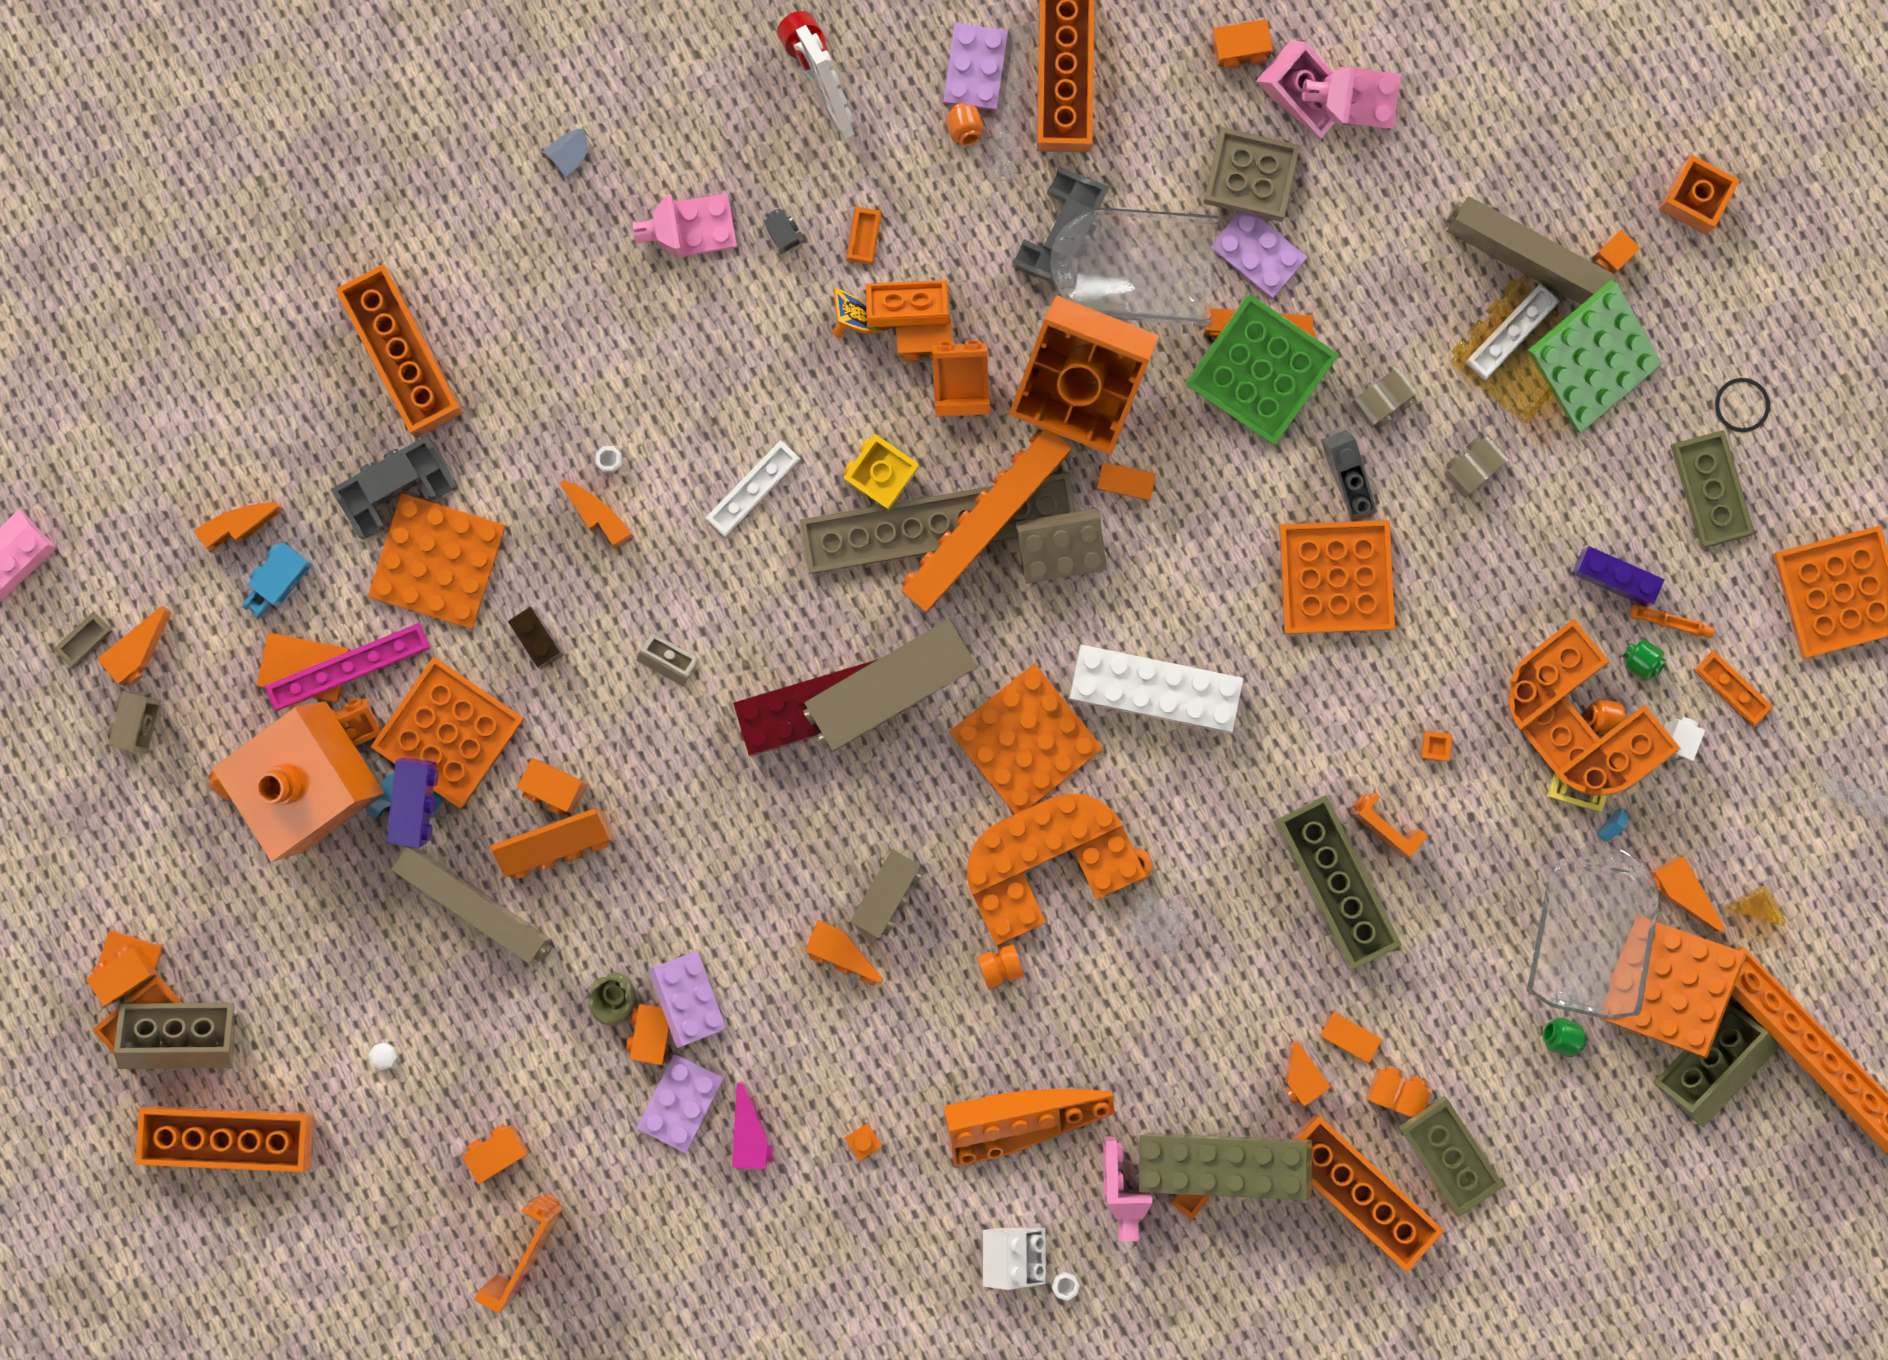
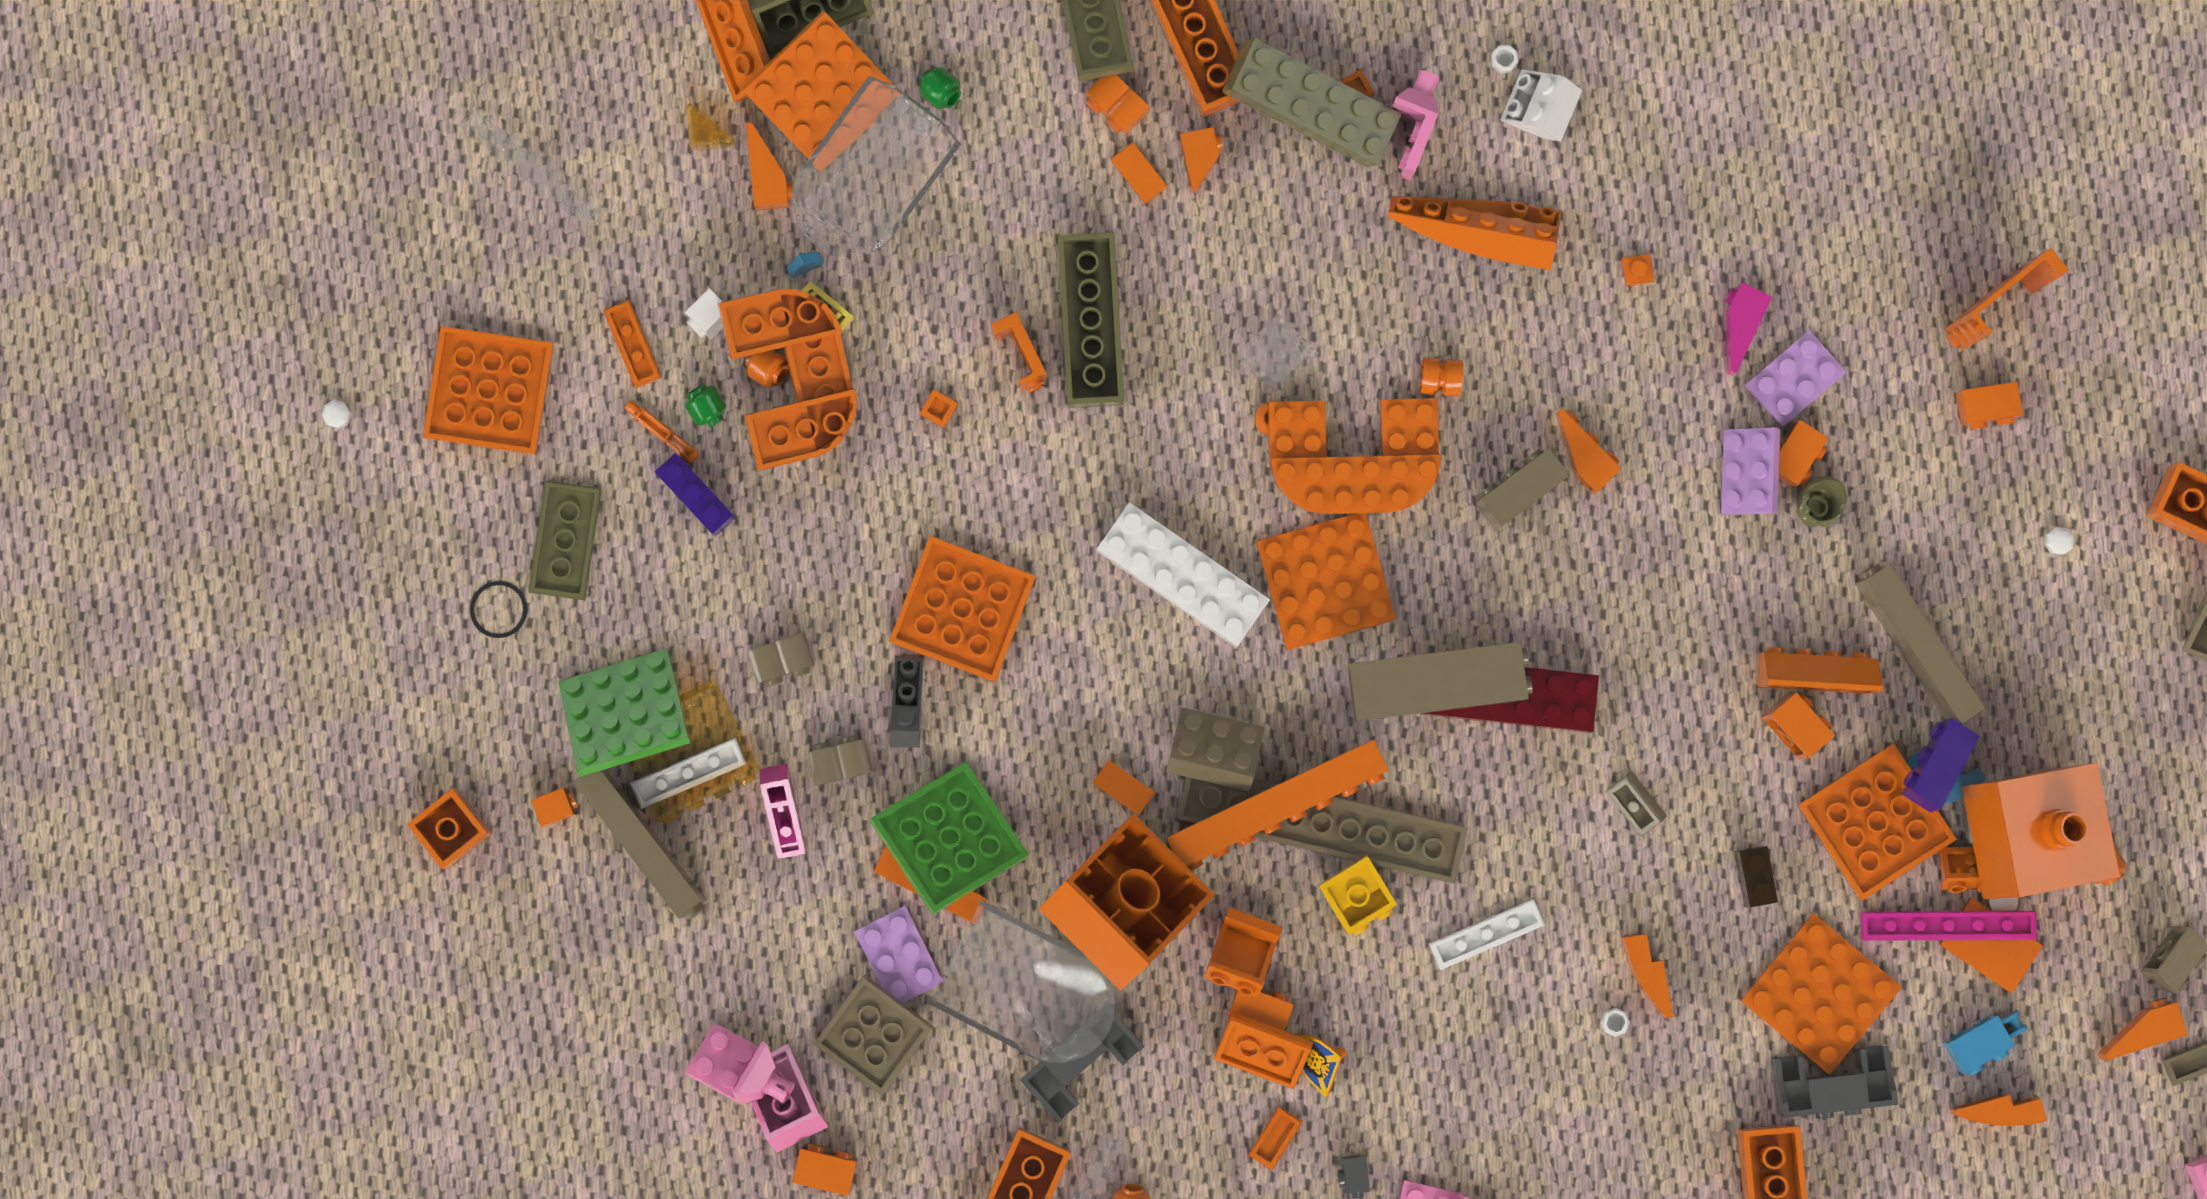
camera: 160 degrees left, 0 degrees up
(1417, 334) = (782, 810): none -> dark pink slope

